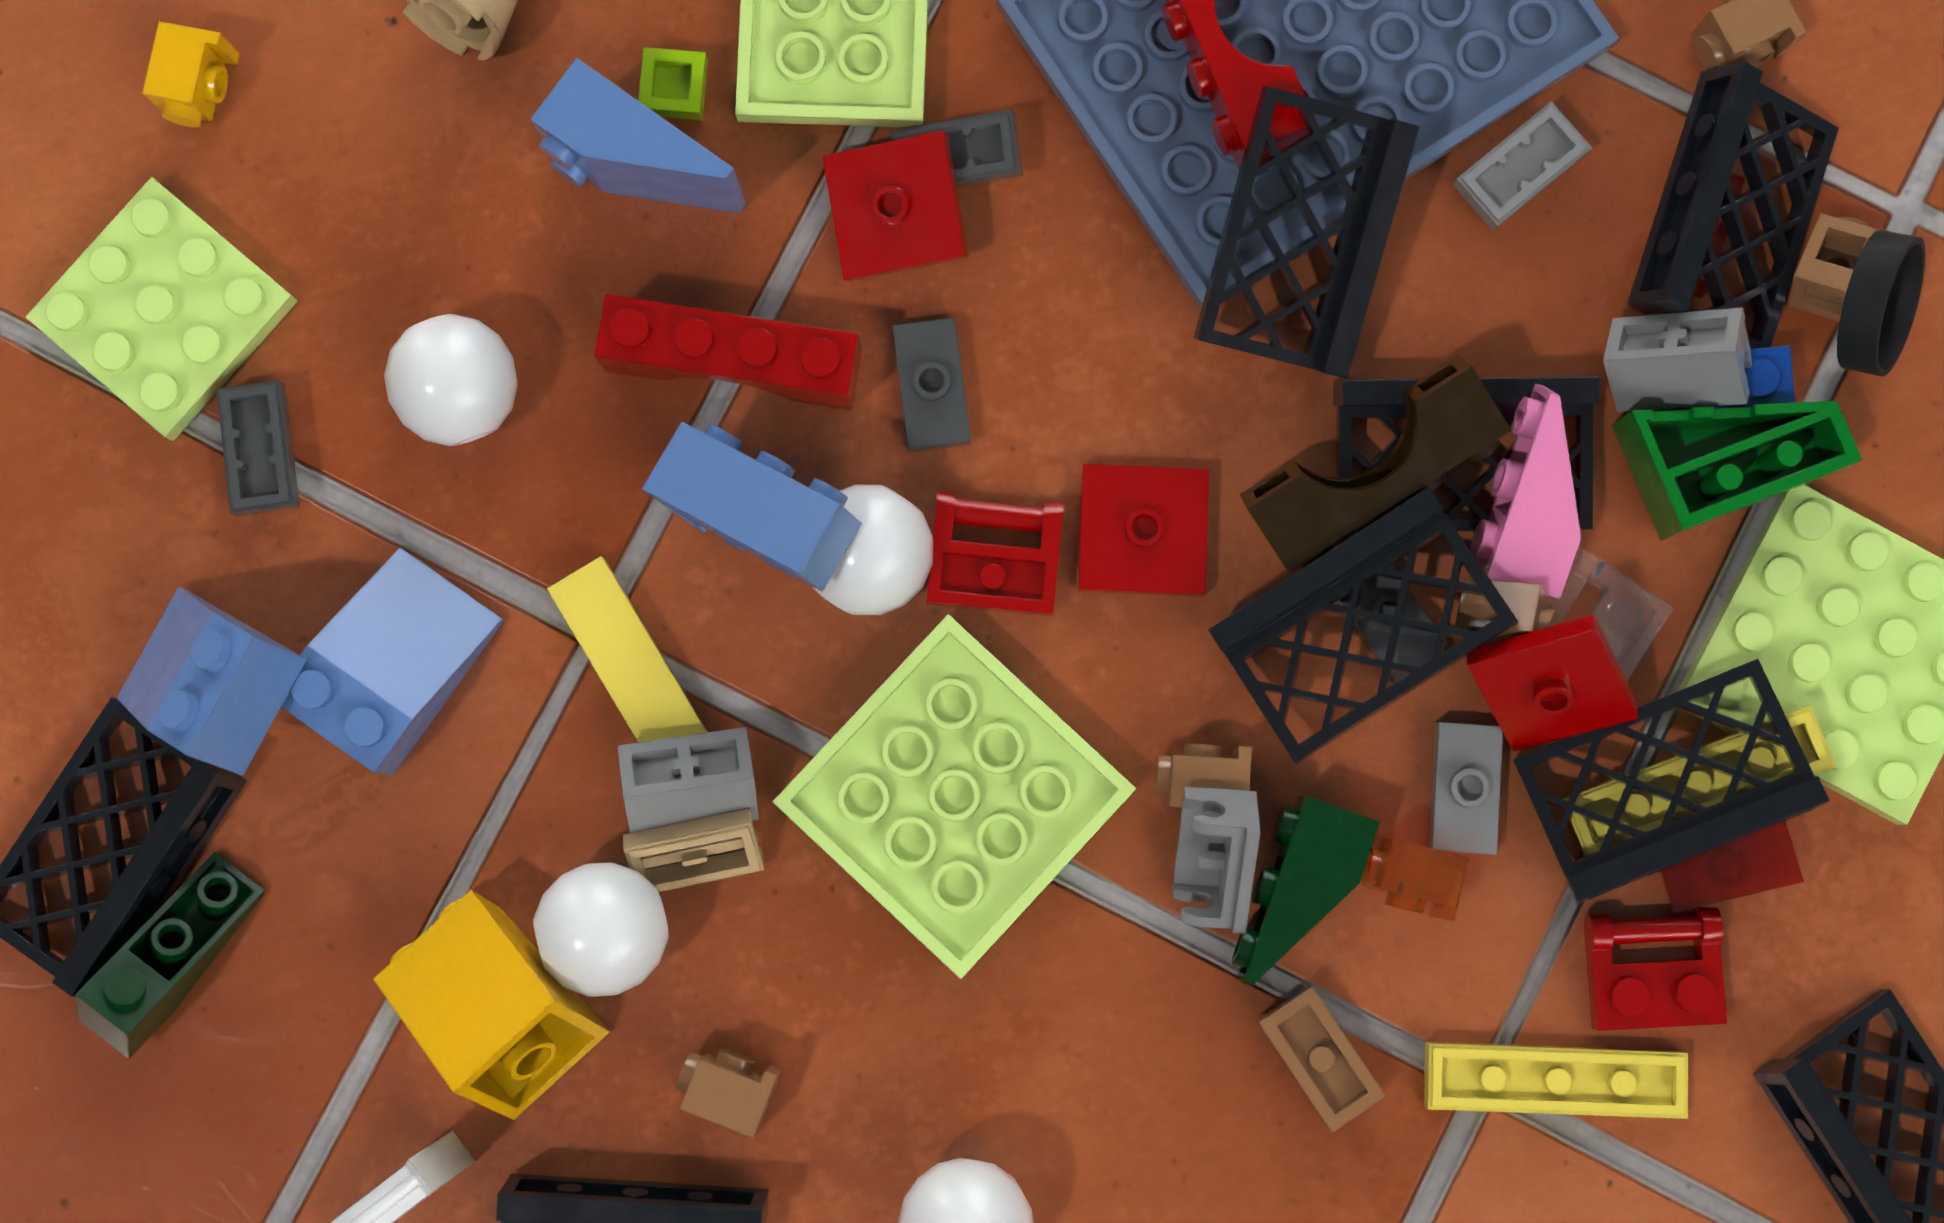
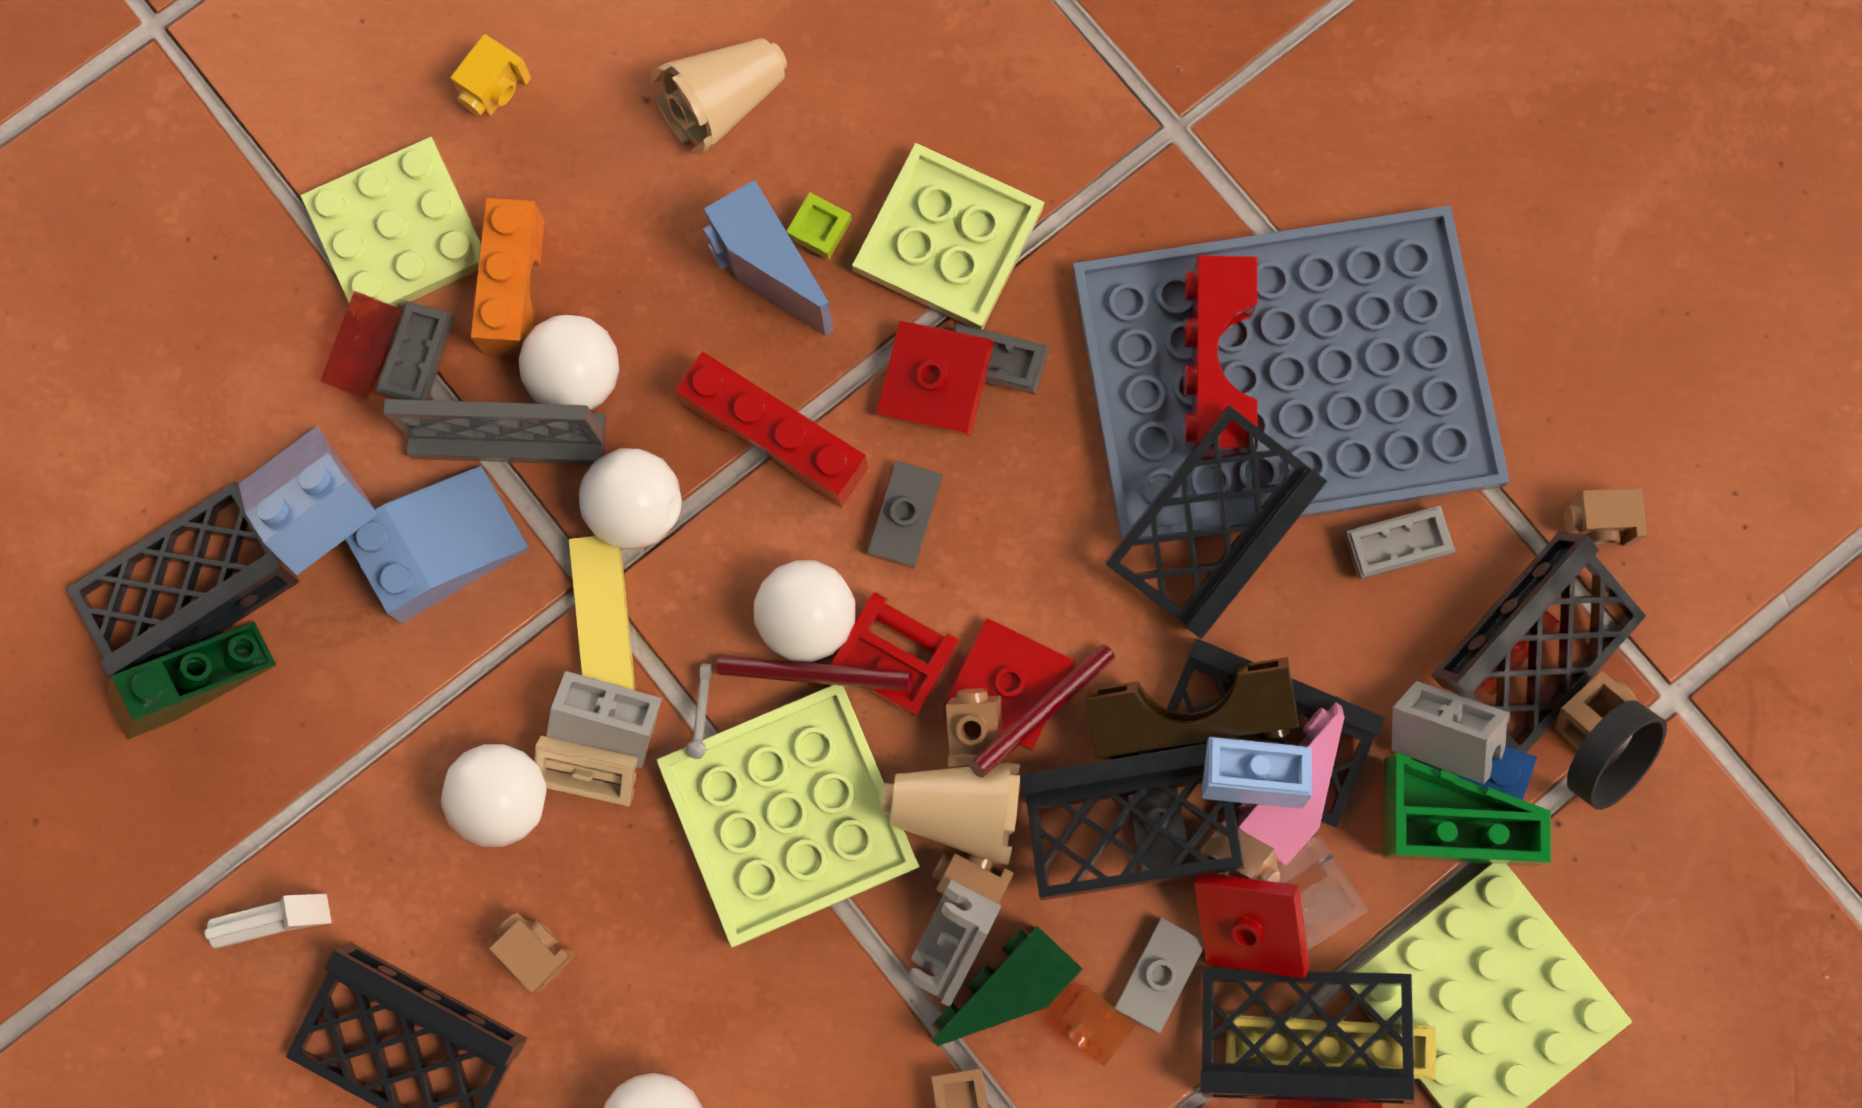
camera: 25 degrees right, 5 degrees down
(187, 465) = (361, 344): none -> clear red plate
(318, 293) = (502, 298): none -> orange arch
(405, 497) = (499, 431): none -> dark grey fence
(488, 1007) = (390, 816): yellow slope -> none
(595, 510) = (630, 498): none -> white piece
(754, 503) = (736, 541): medium blue wedge -> none
(814, 767) = (696, 748): none -> light grey hinge
(913, 618) = (815, 673): none -> dark red bar
(1142, 624) = (977, 707): none -> medium nougat brick
(1154, 699) = (958, 808): none -> tan cone
(1199, 545) = (1041, 711): none -> dark red bar
(1487, 505) = (1257, 773): none -> light blue slope

